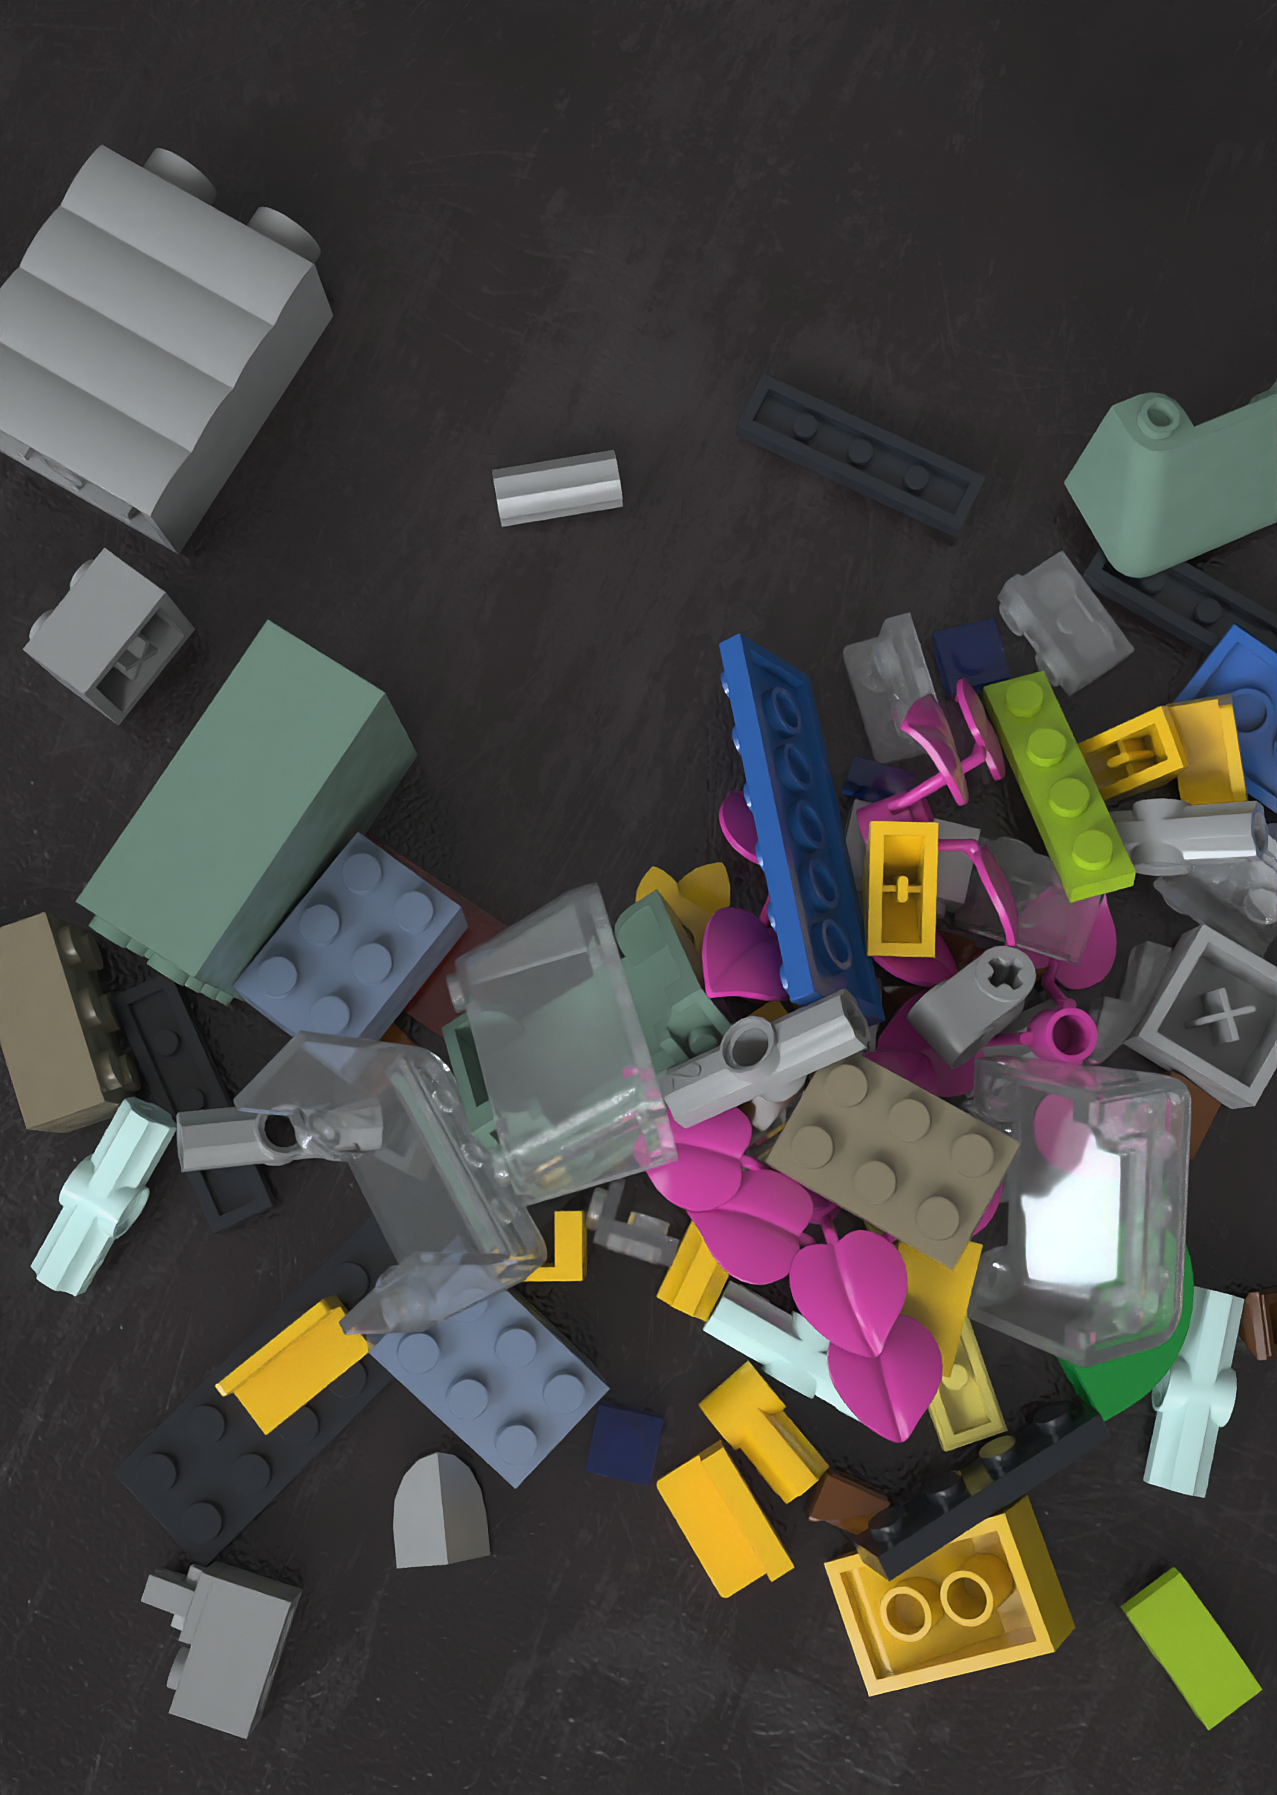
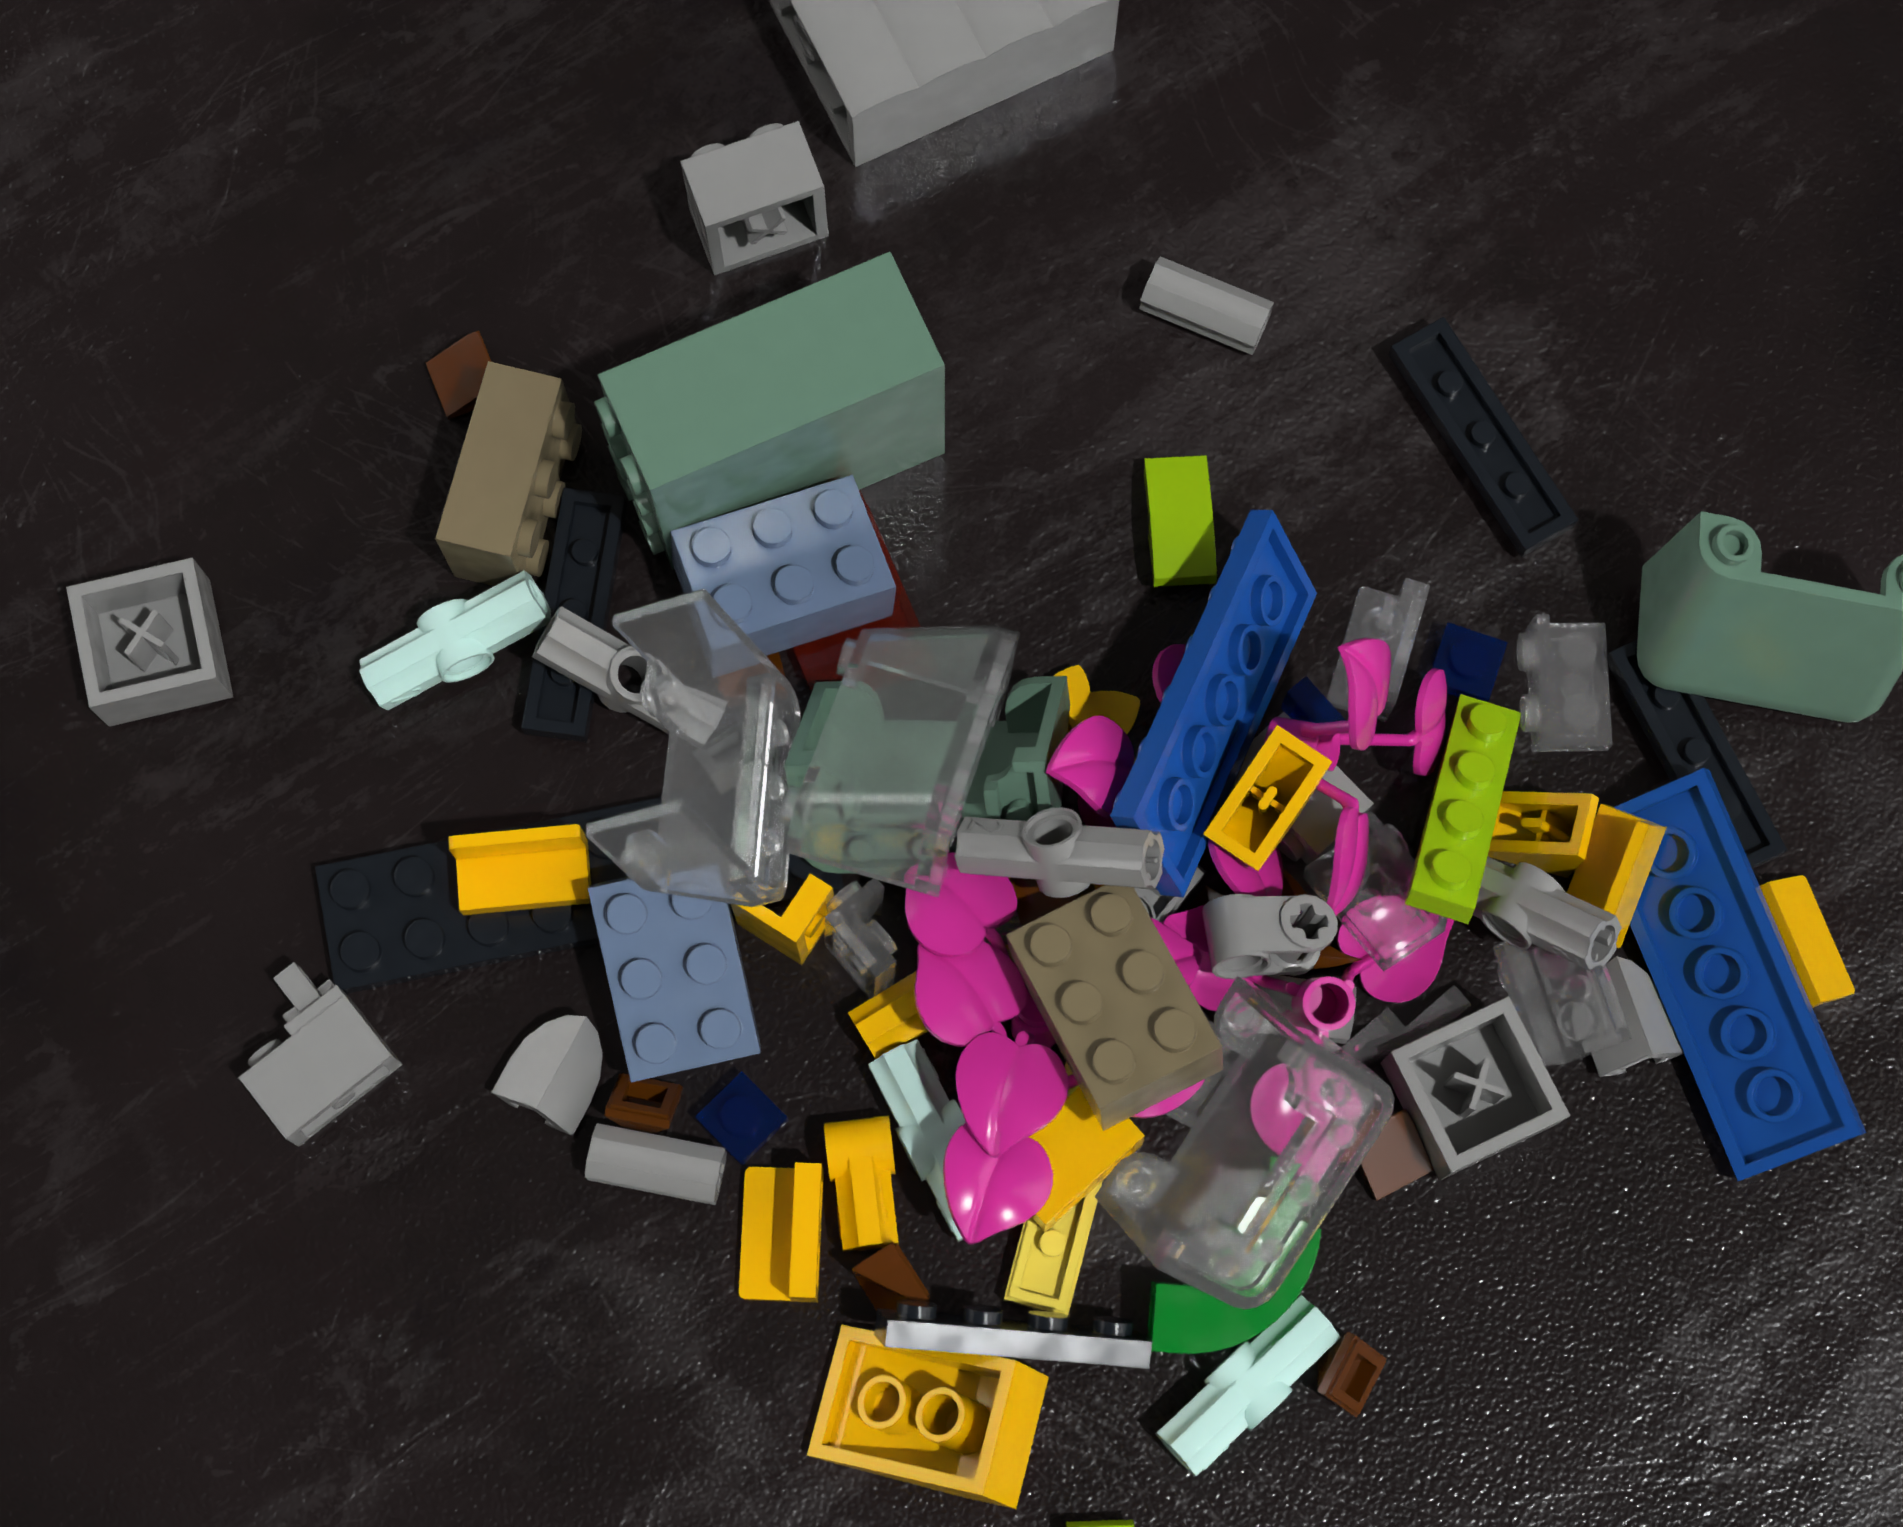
camera: 30 degrees right, 5 degrees down
(538, 1494) = (643, 1104): none -> reddish brown slope
(578, 1535) = (655, 1164): none -> light grey axle
(656, 687) = (1180, 521): none -> lime slope

